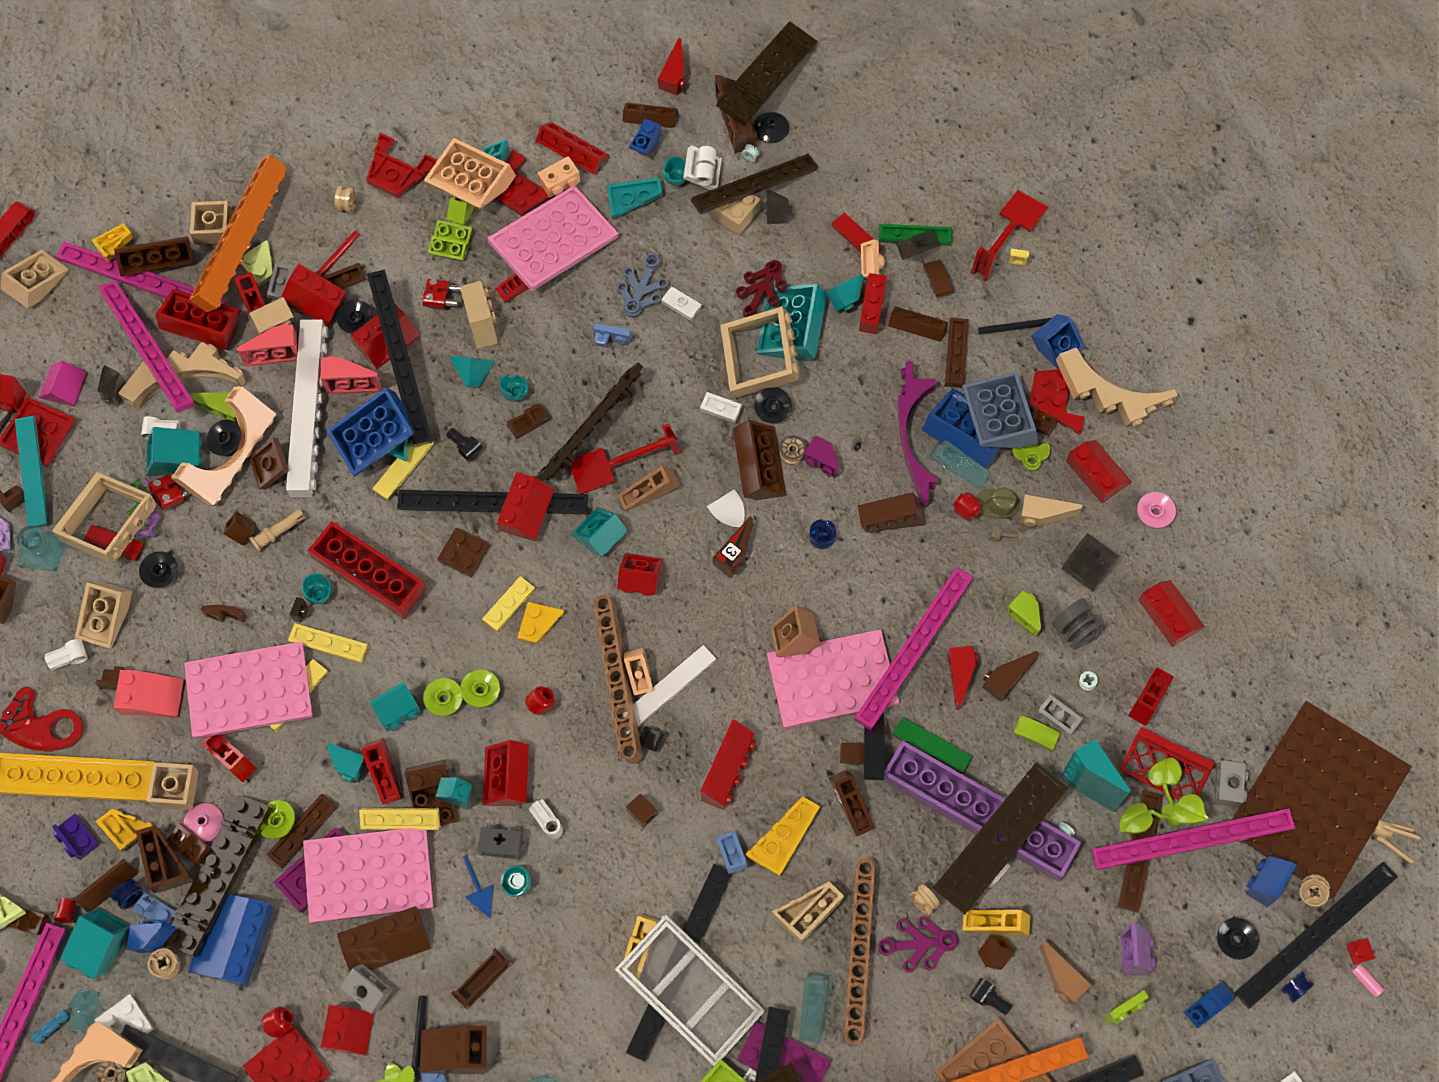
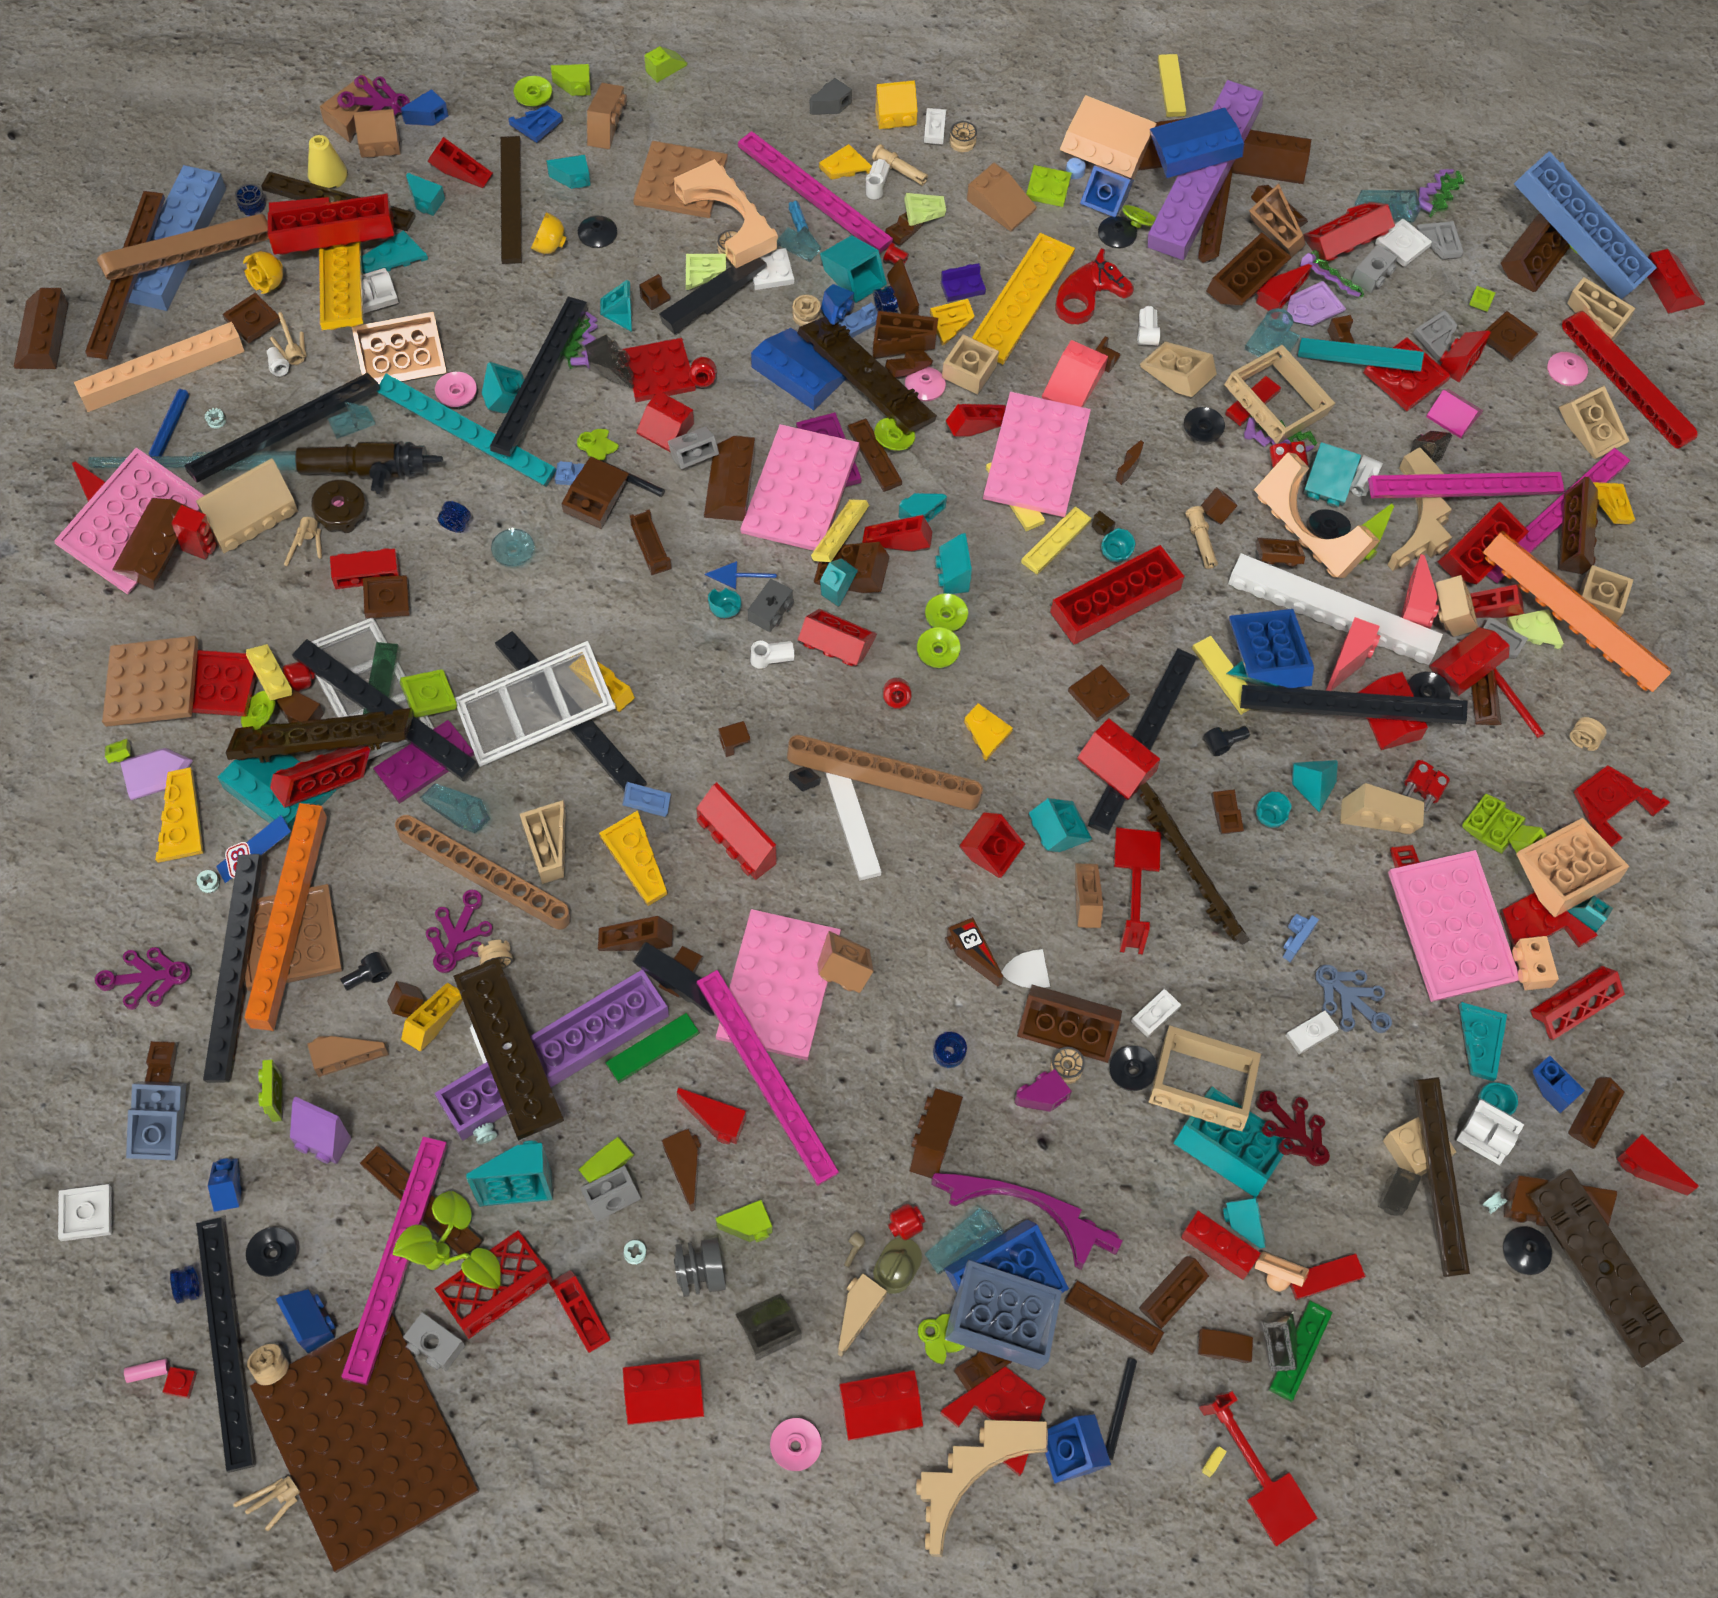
camera: 110 degrees right, 5 degrees down
(508, 604) = (1020, 711): light yellow plate -> none
(638, 671) = (883, 795): light nougat slope -> none

